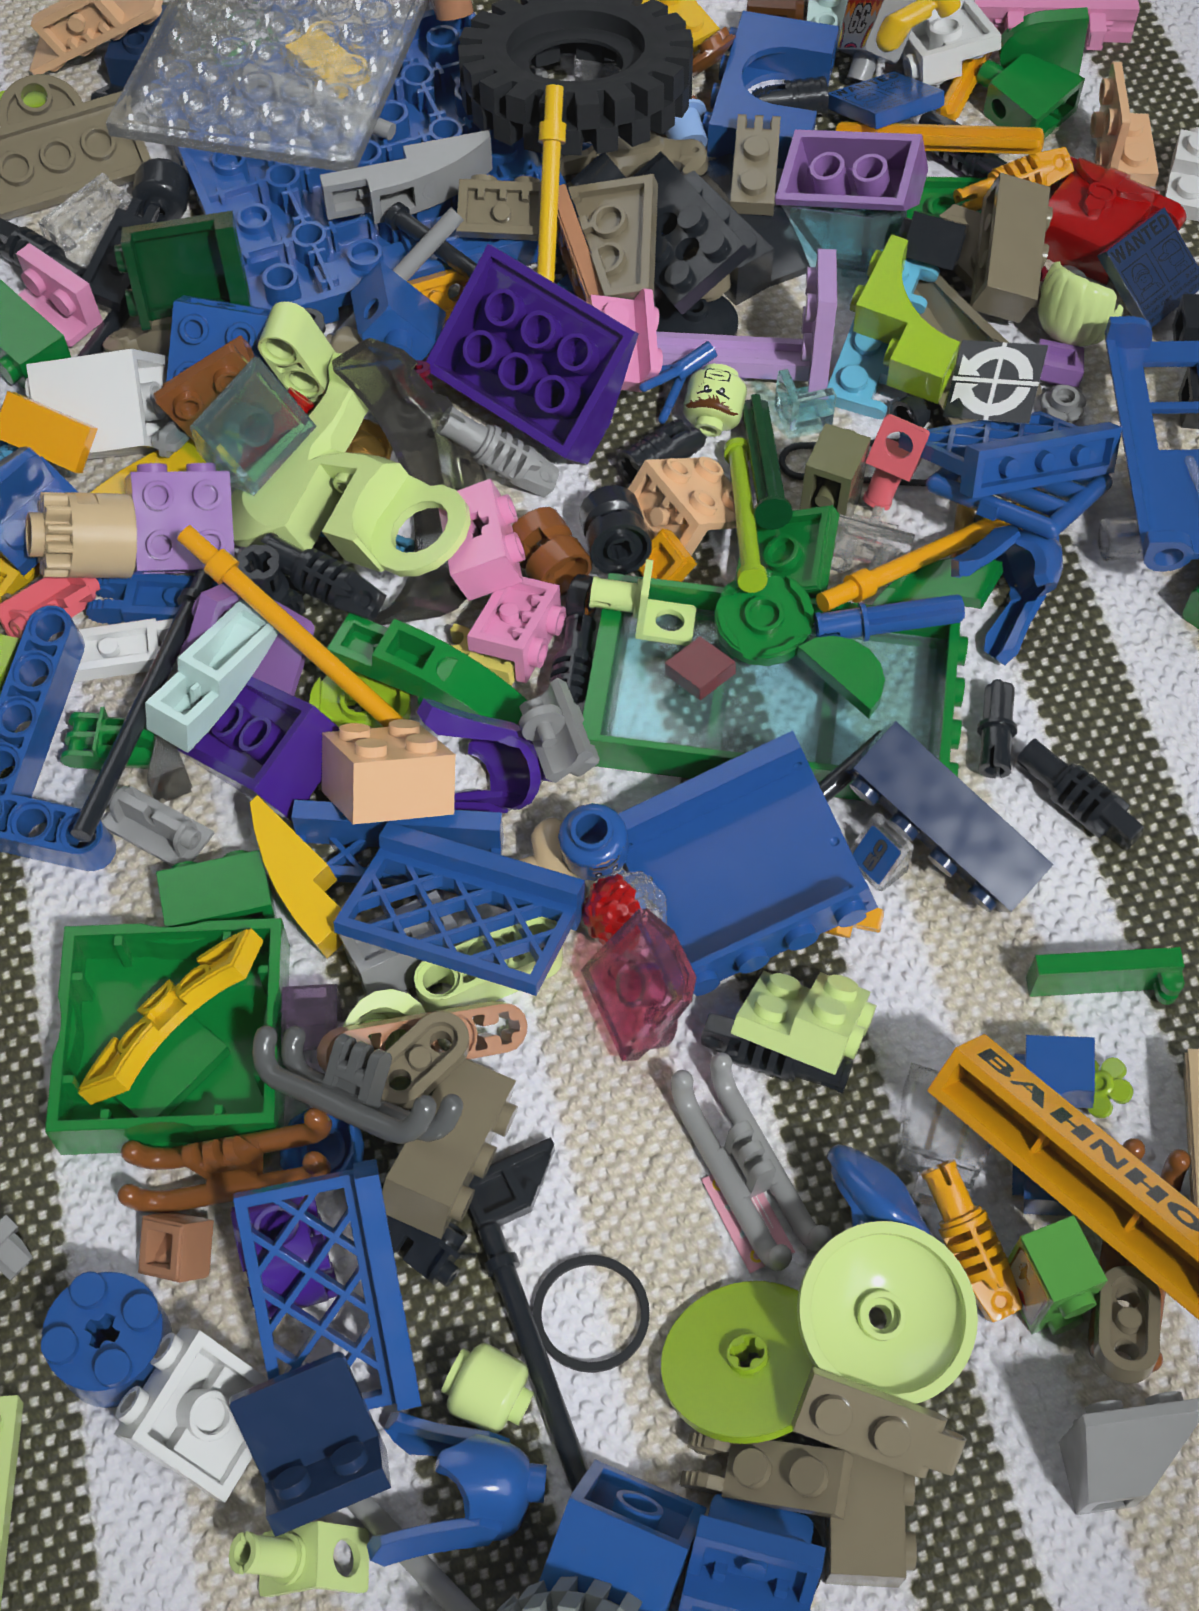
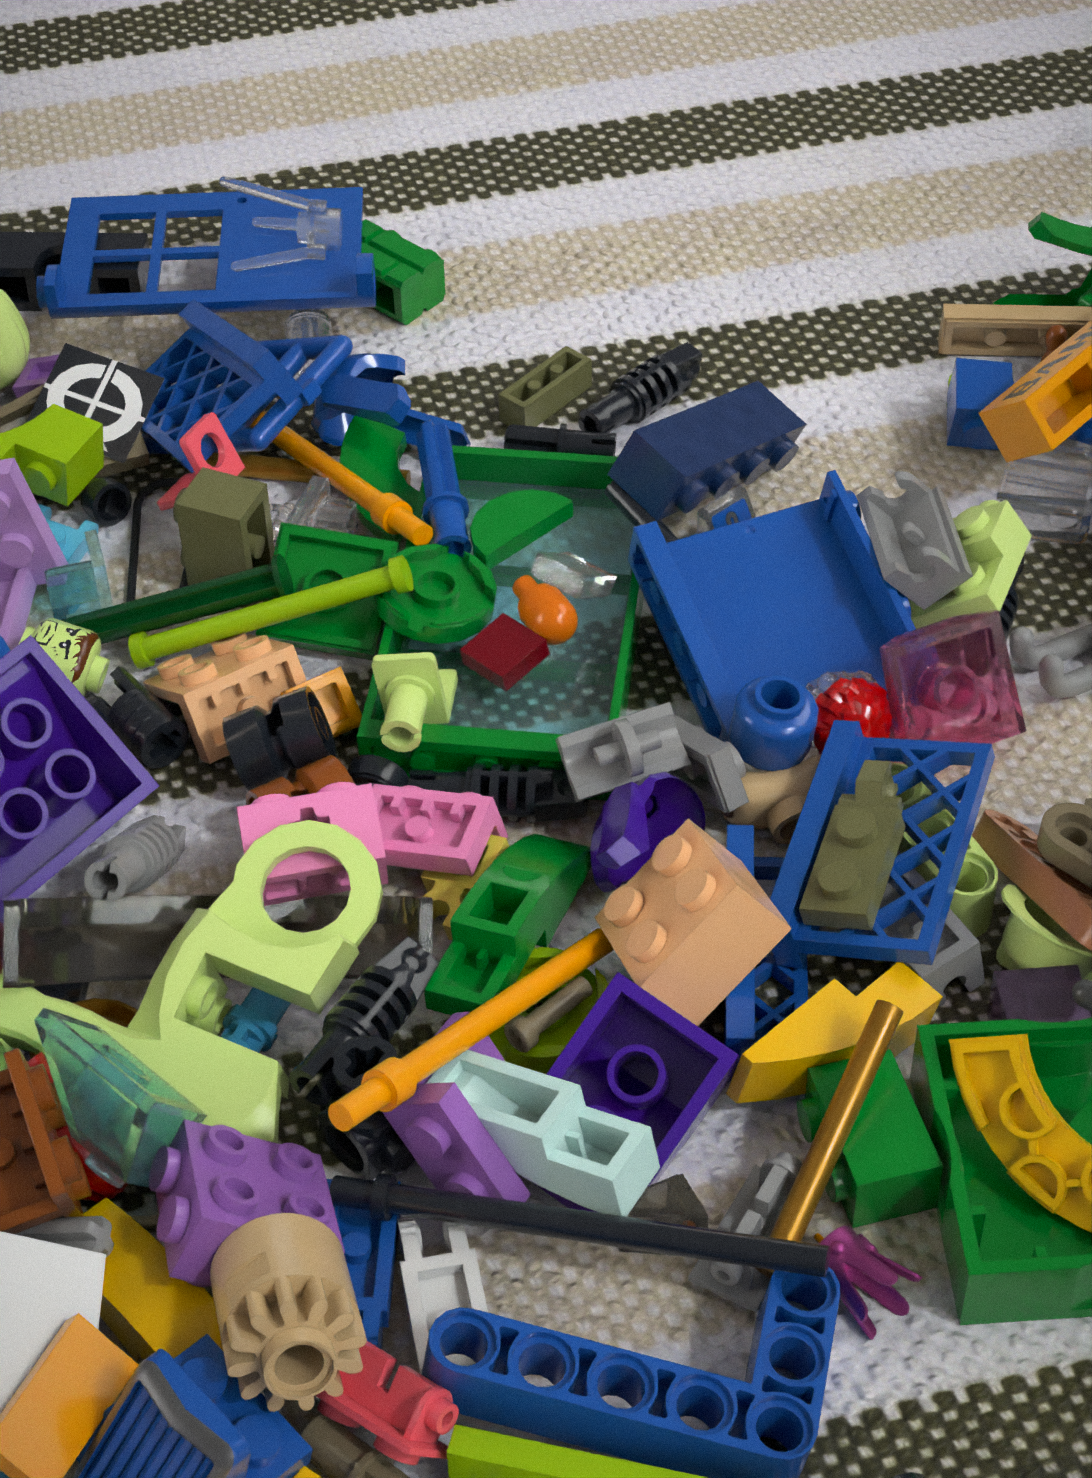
camera: 90 degrees left, 15 degrees down
(101, 741) = (622, 1311): green arm -> none
(117, 875) = (859, 1263): none -> flat silver piece
(193, 854) = (836, 1124): none -> pearl gold bar
(321, 682) = (525, 1031): none -> dark tan piece
(440, 885) = (856, 853): none -> olive hinge
(557, 794) = (714, 767): none -> light grey hinge
(735, 689) = (545, 610): none -> orange cylinder
(773, 706) = (573, 575): none -> clear tile
(806, 959) = (915, 540): none -> light grey hinge
(1080, 719) = (546, 388): none -> olive piece
(1108, 972) = (855, 378): green hinge -> none

